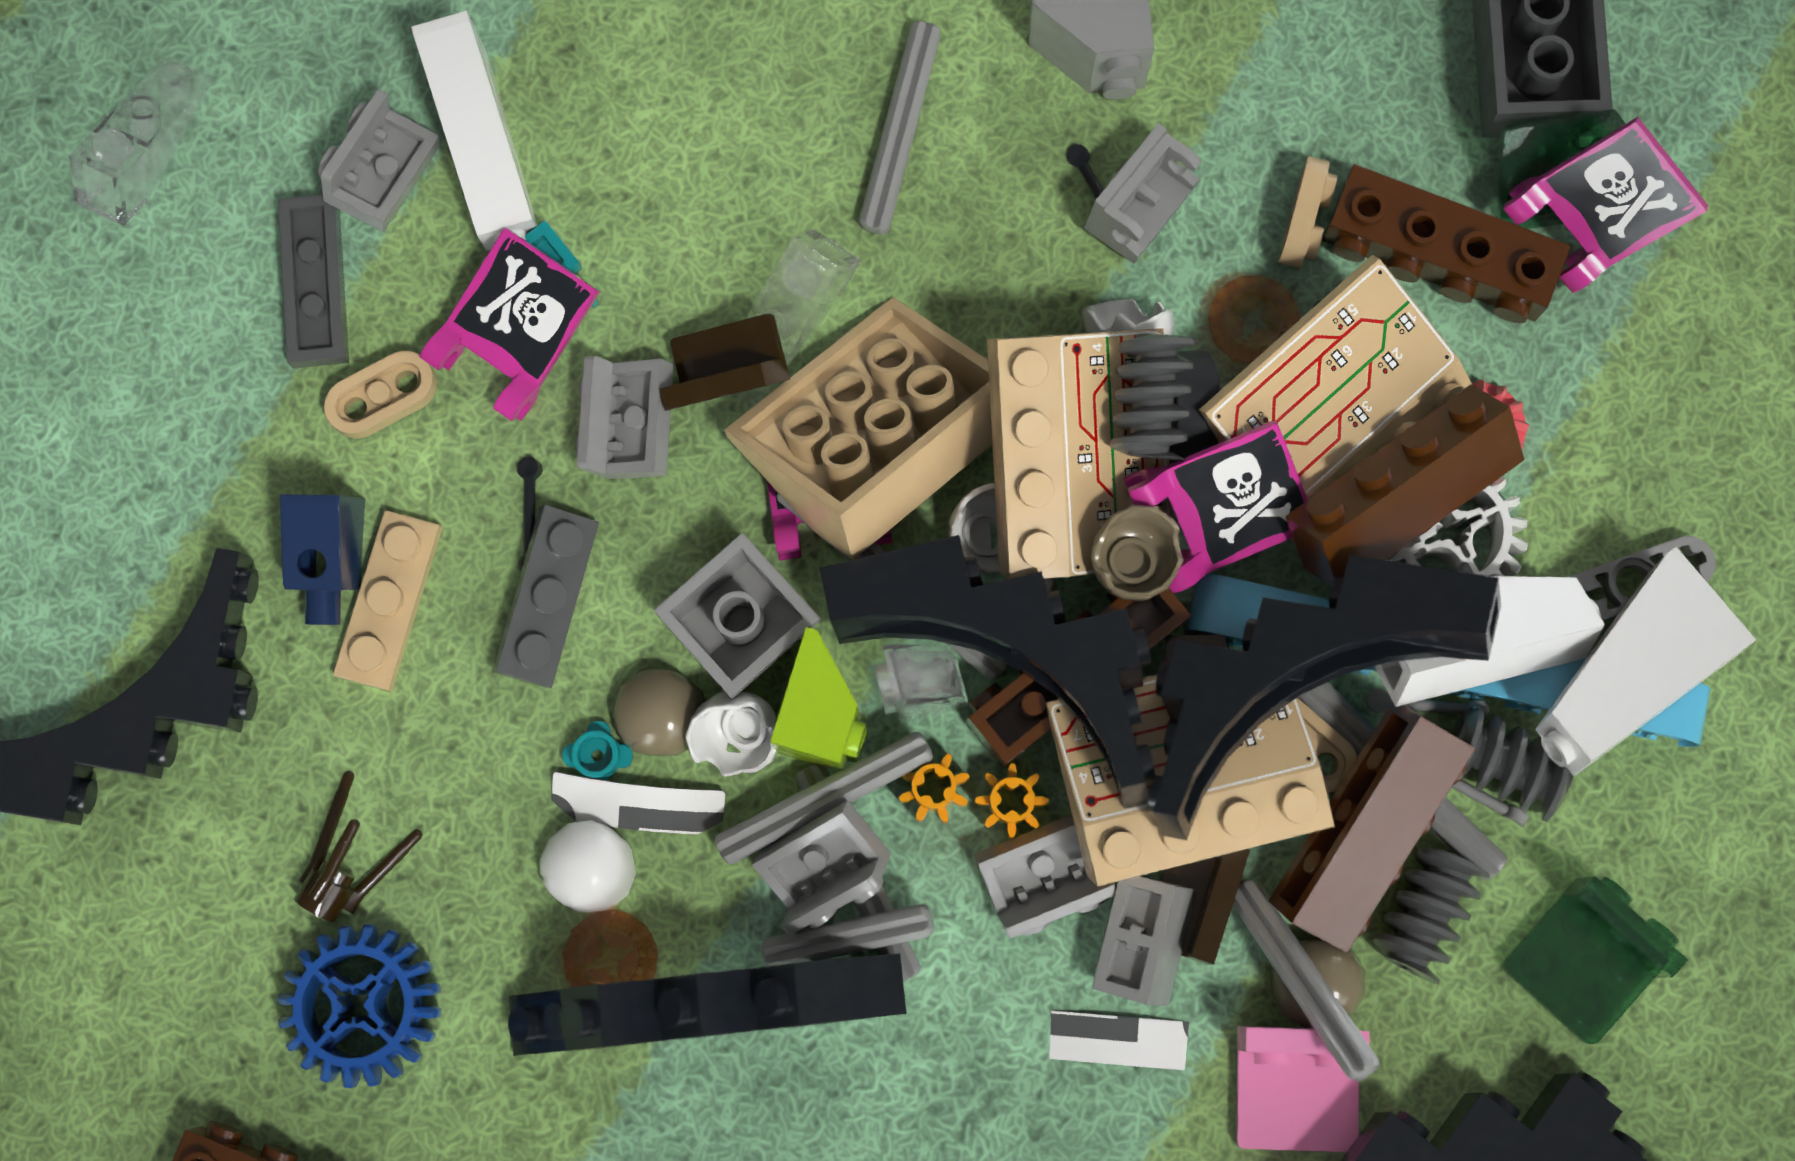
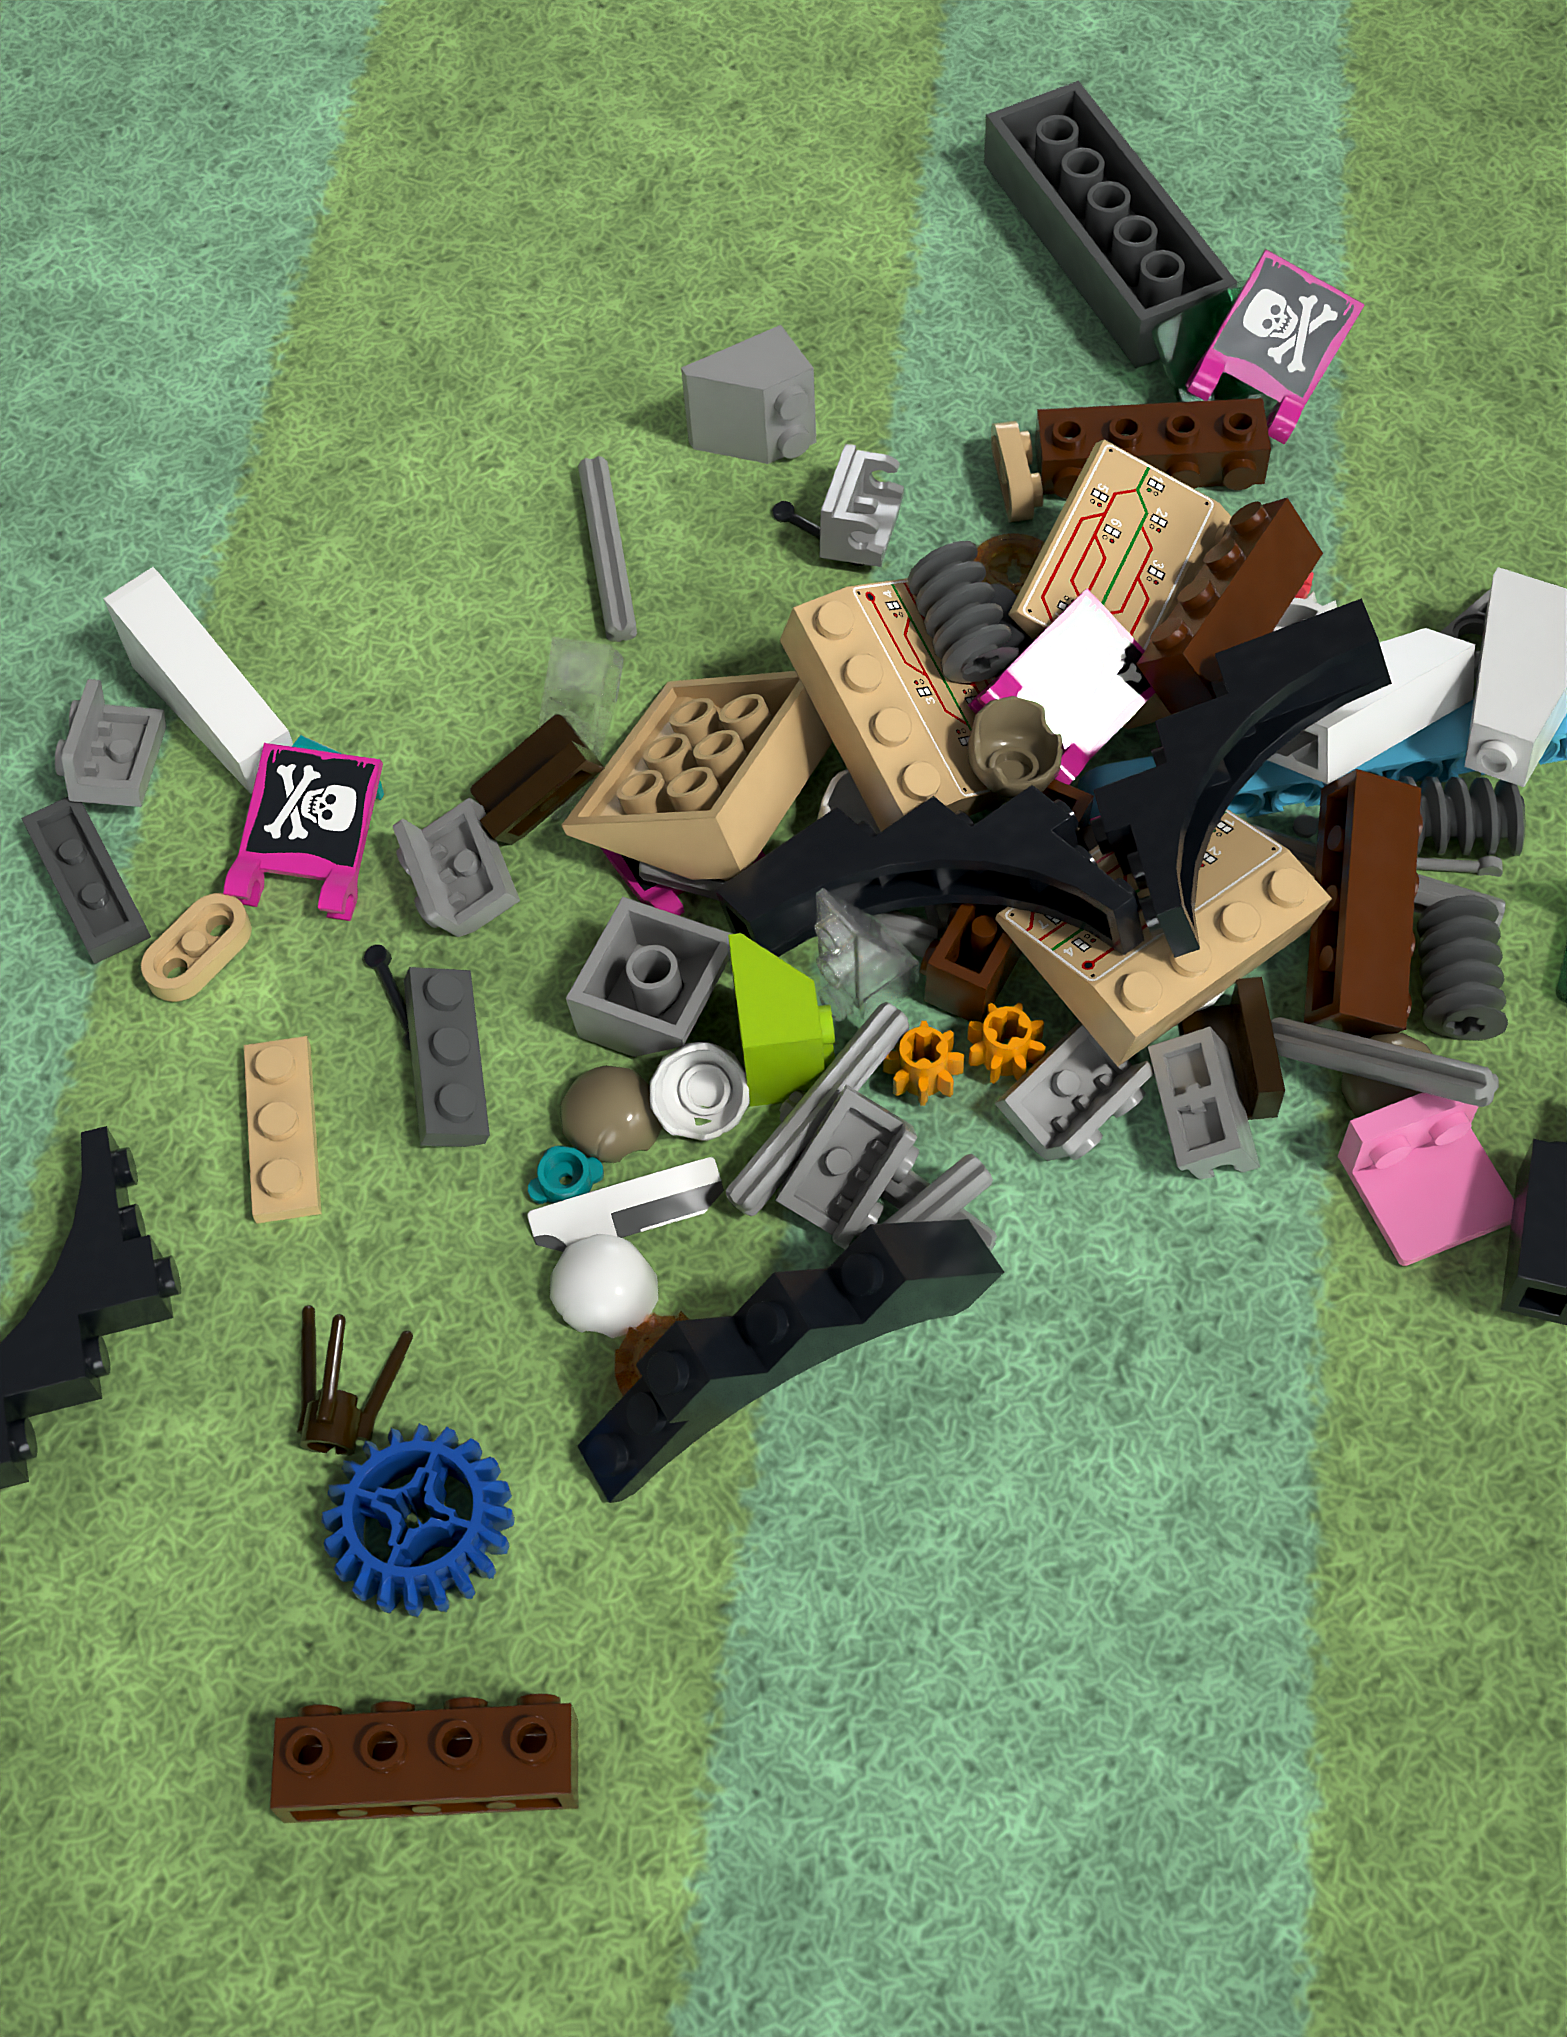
camera: 25 degrees left, 20 degrees down
(336, 530) = (180, 1054): dark blue torso -> none
(1118, 1040) = (1227, 1220): white sticker -> none

